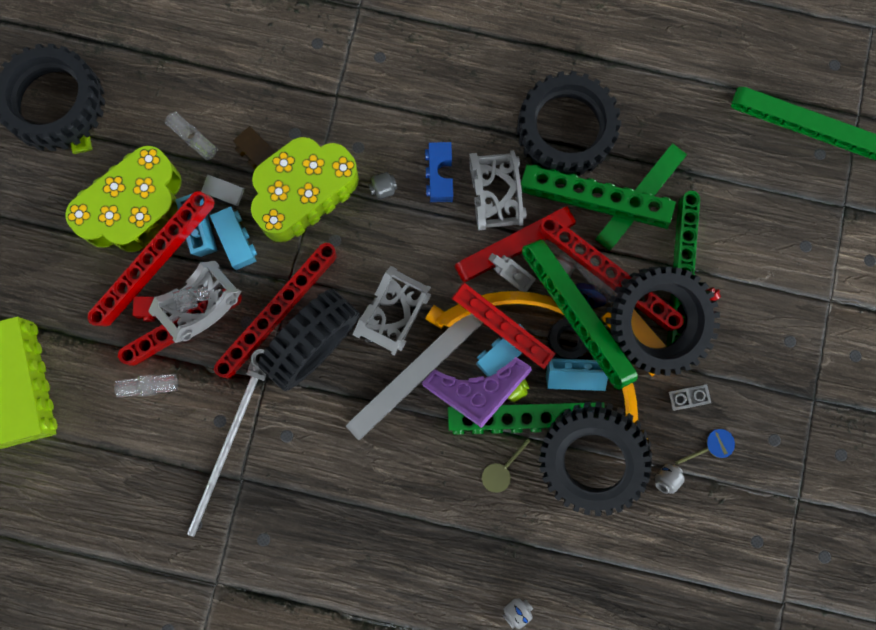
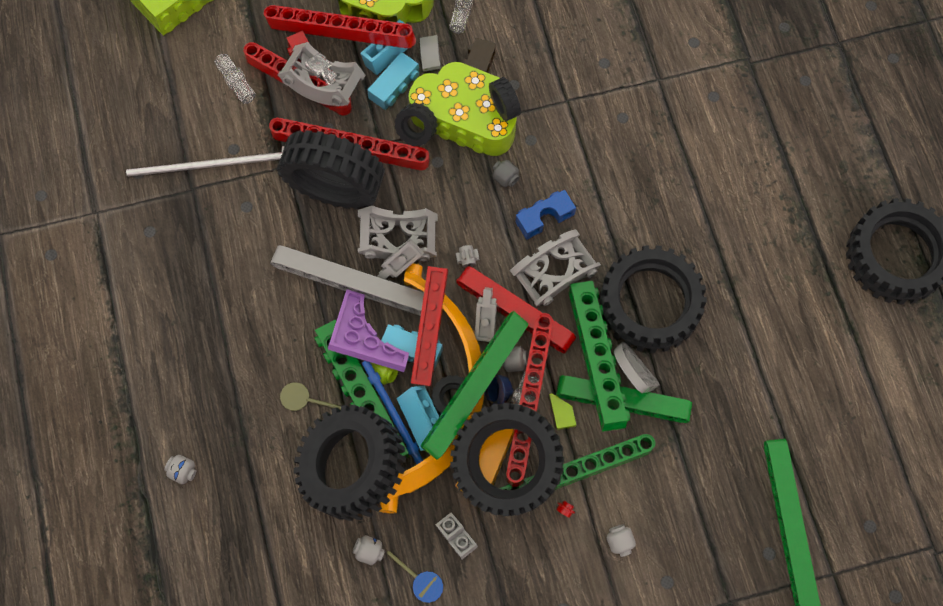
camera: 70 degrees right, 10 degrees down
(304, 249) = (425, 115): none -> black tyre
(324, 144) = (504, 99): none -> black tyre
(422, 321) = (400, 260): none -> light grey hinge
(445, 260) = (467, 256): none -> light grey gear
(596, 396) = (374, 378): none -> blue bar
(625, 172) = (635, 369): none -> light grey beam
(626, 254) = (562, 413): none -> lime tile
(759, 264) = (621, 540): none -> light grey head

